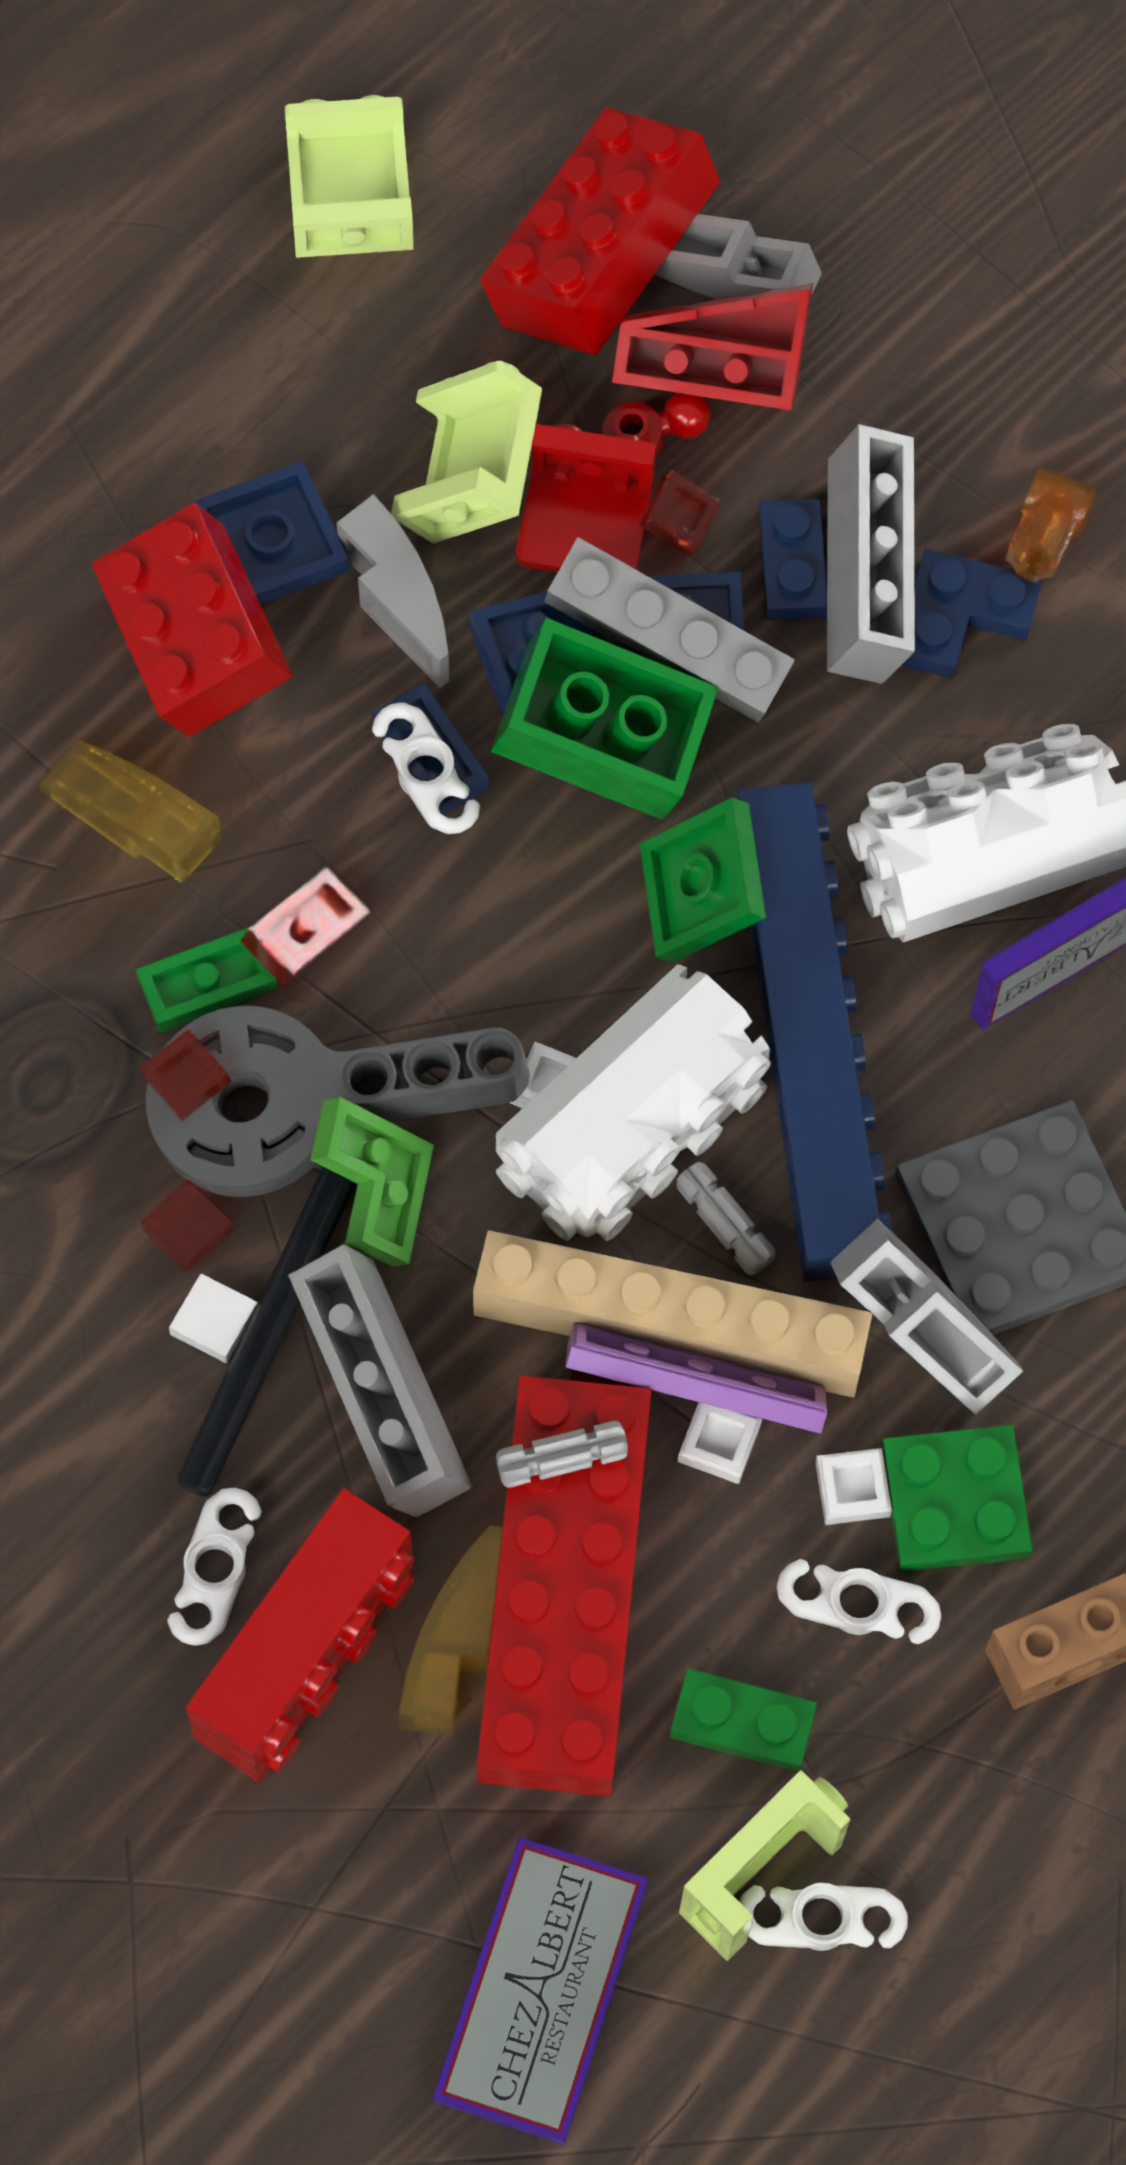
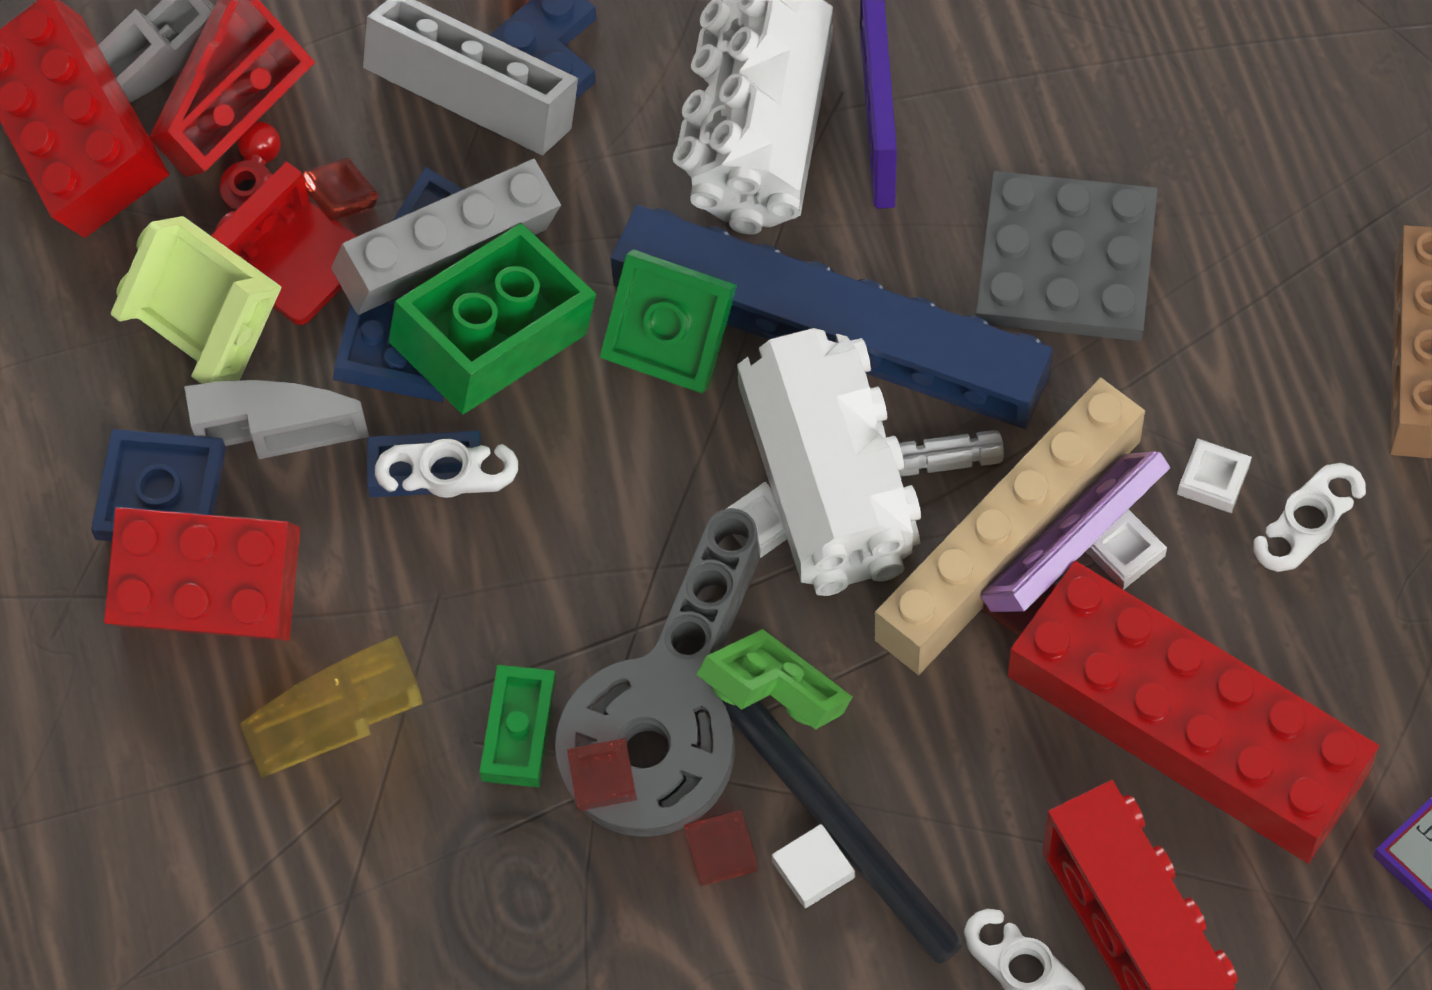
camera: 55 degrees left, 5 degrees down
(304, 926) = (524, 626): clear red plate -> none
(380, 1381) = (948, 758): light grey brick -> none
(452, 1639) = (1189, 813): clear yellow slope -> none
(561, 1454) = (1102, 643): light grey axle -> none
(743, 1720) = (1361, 645): green plate -> none
(792, 559) = (428, 135): dark blue plate -> none
(925, 1316) = (1115, 348): light grey slope -> none
(956, 1498) = (1264, 409): green plate -> none

